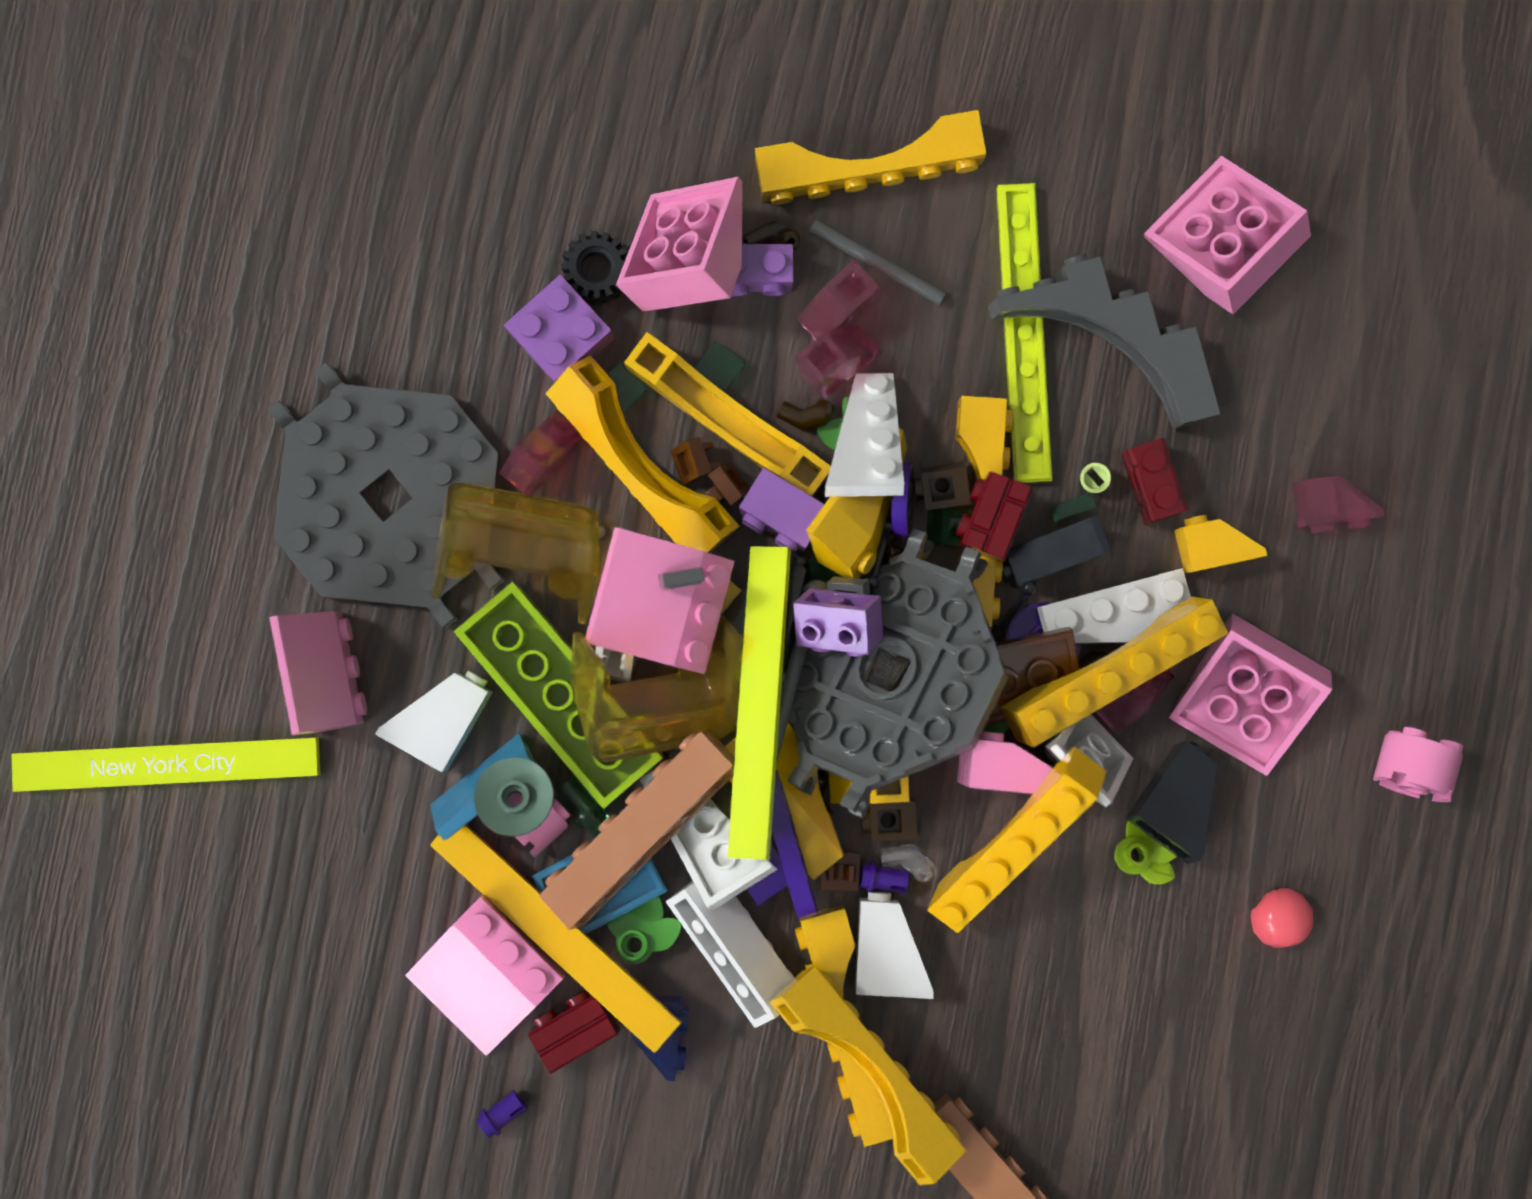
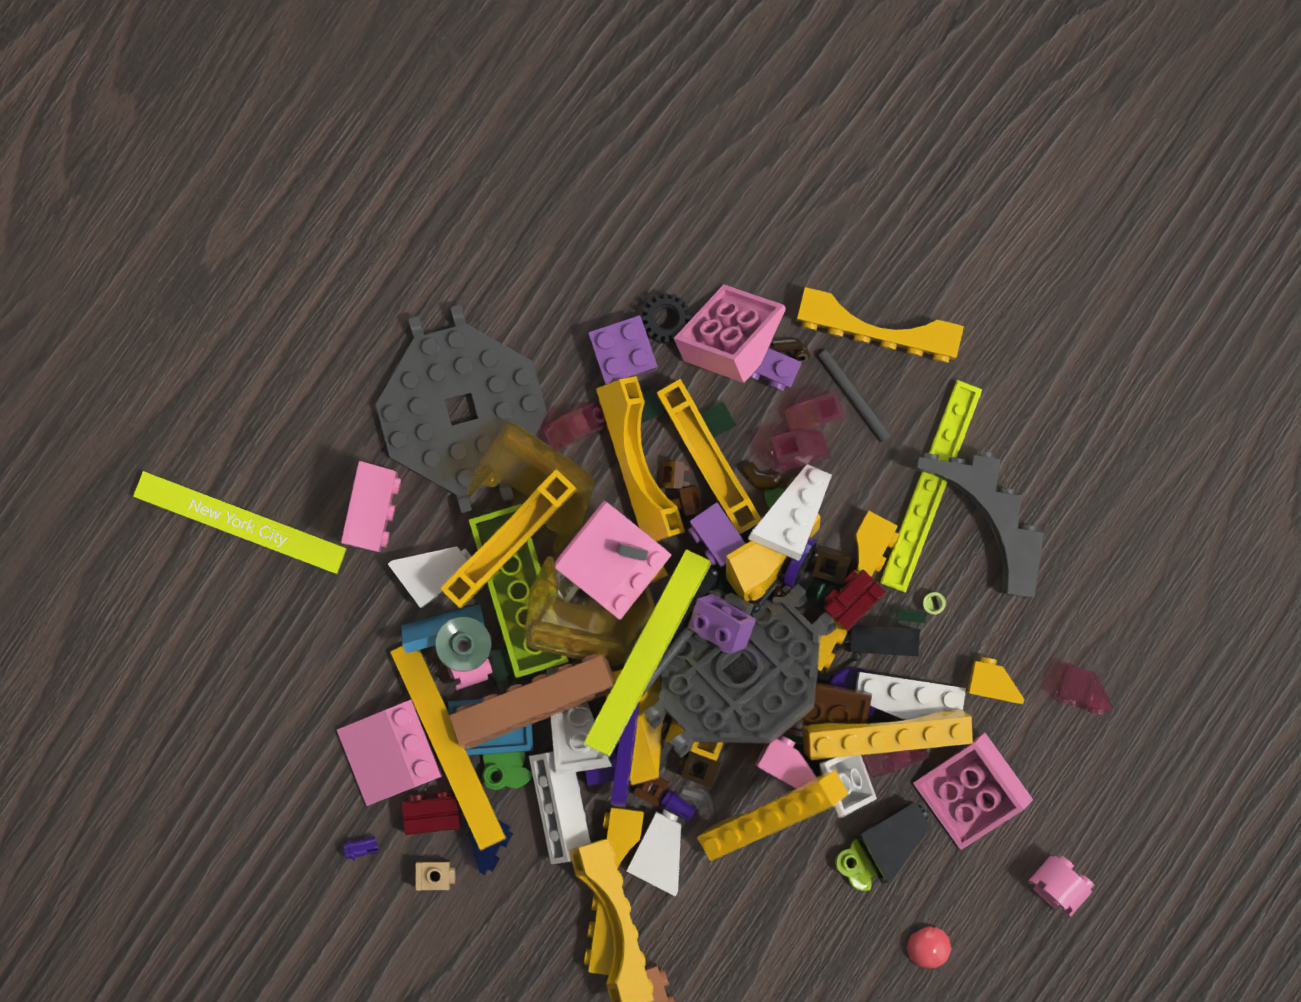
camera: 25 degrees right, 0 degrees up
(515, 633) = (508, 539): none -> yellow arch
(617, 1093) = (423, 872): none -> tan brick
(1154, 481) = (971, 622): dark red brick -> none
(1230, 233) = (1095, 480): bright pink slope -> none

